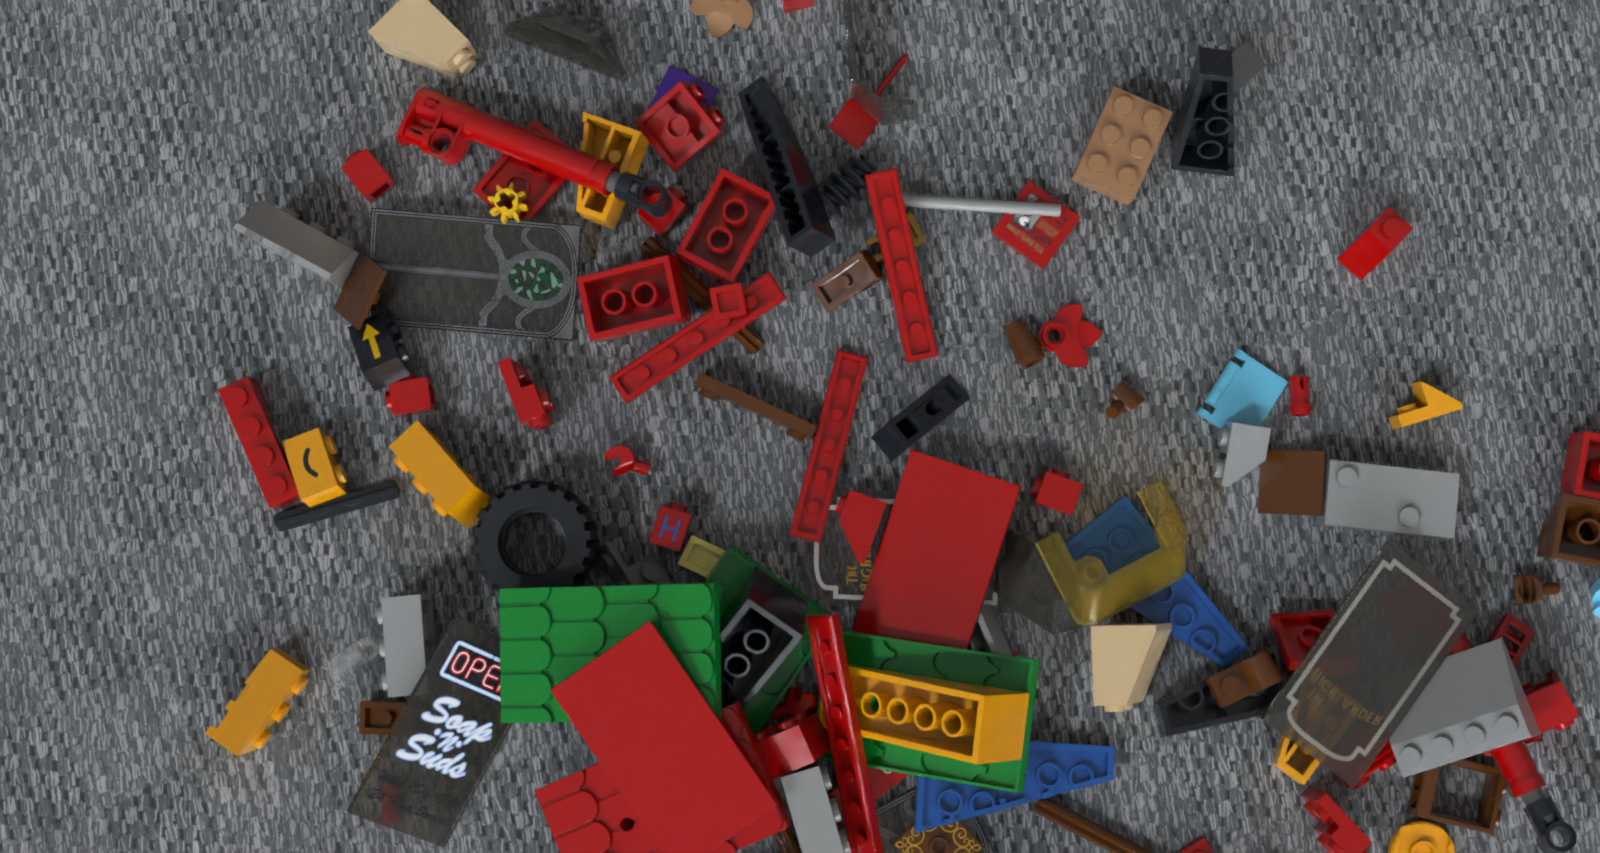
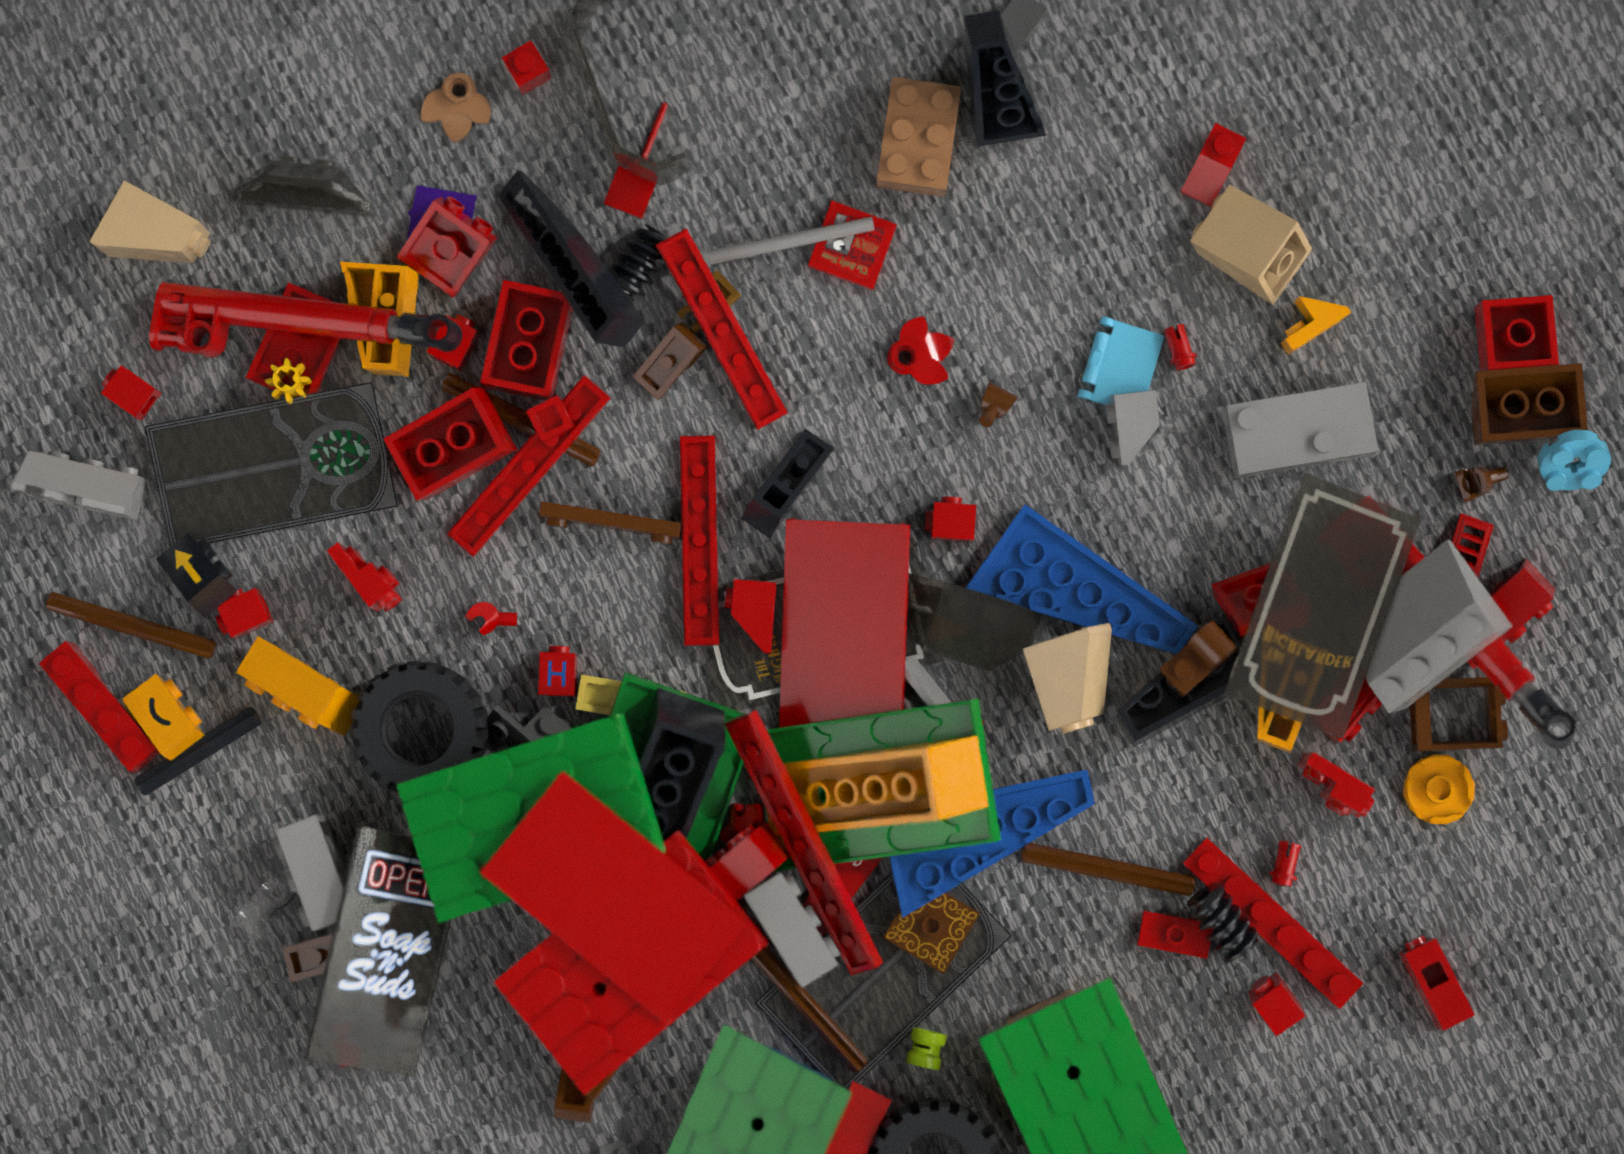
camera: 15 degrees left, 0 degrees up
(260, 703) = (179, 978): light orange wedge -> none
(310, 378) = (131, 625): none -> reddish brown axle
(360, 290) = (158, 517): reddish brown piece -> none
(1024, 344) = (876, 376): reddish brown cone -> none
(1094, 593) = (1020, 614): clear yellow windscreen -> none
(1292, 482) = (1195, 440): reddish brown piece -> none
(1389, 321) = (1251, 243): none -> tan slope

